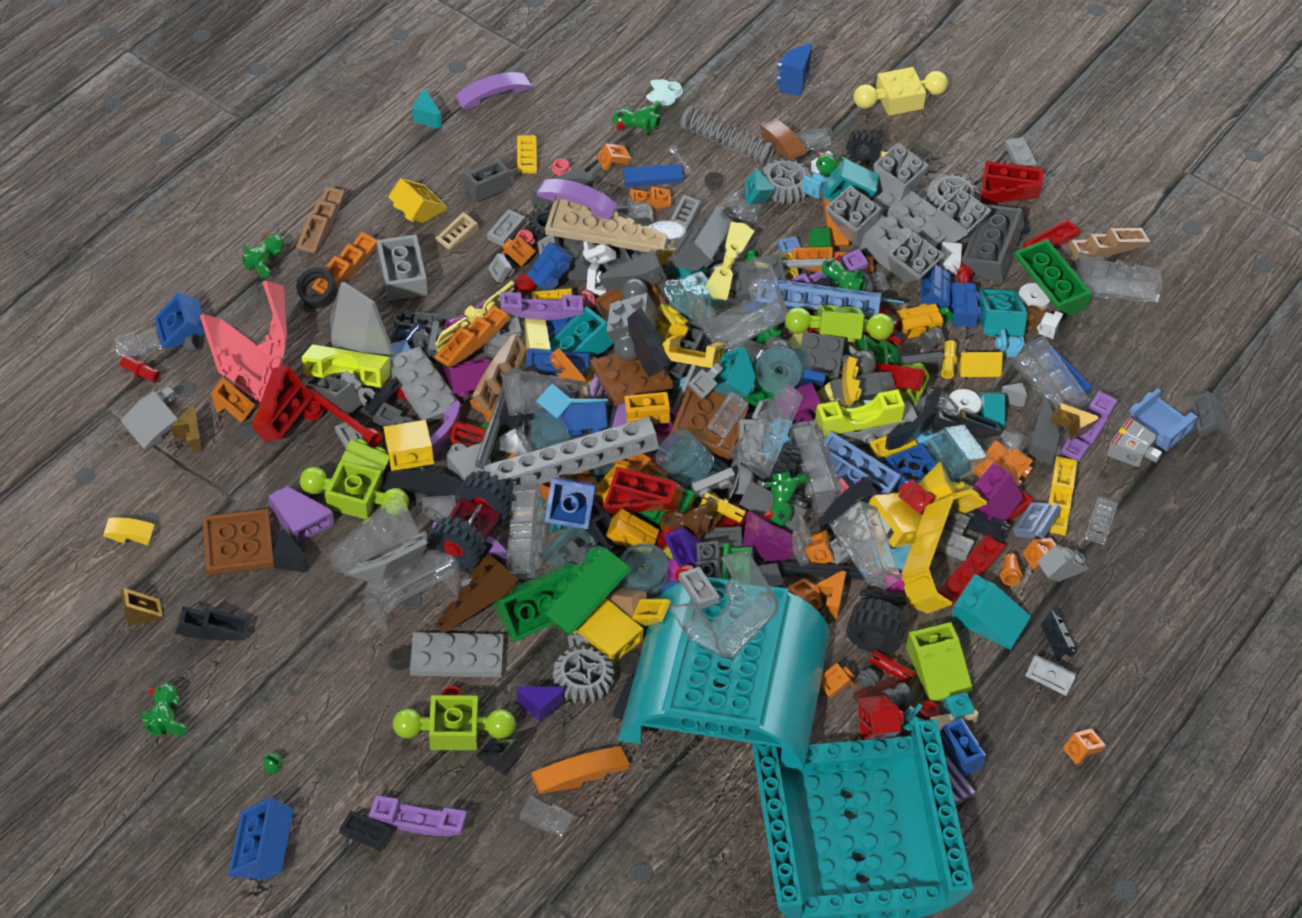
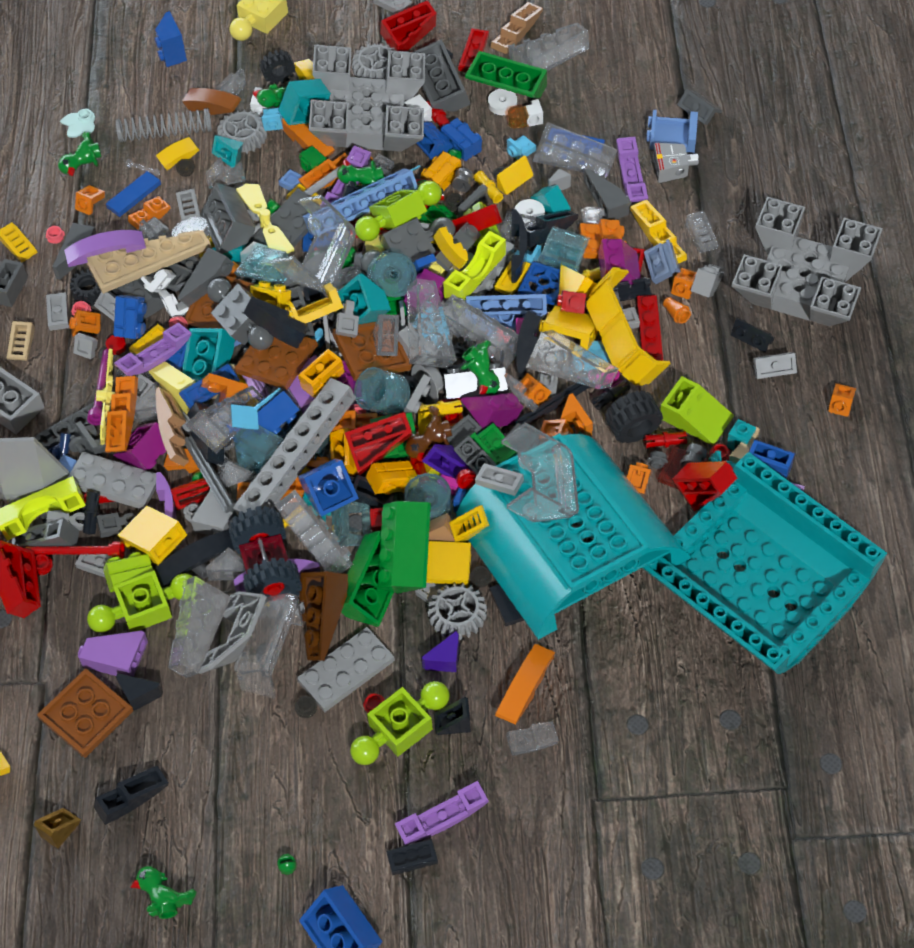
camera: 35 degrees left, 5 degrees up
(576, 554) = (370, 523): dark grey plate -> none
(721, 164) = (179, 150): none -> yellow slope
(786, 460) = (461, 340): black tyre -> none
(990, 613) = (692, 351): teal slope -> none
(1002, 311) = (494, 126): teal slope -> none
(1076, 420) = (621, 170): pearl gold slope -> none
(1153, 615) = (802, 274): none -> light grey slope

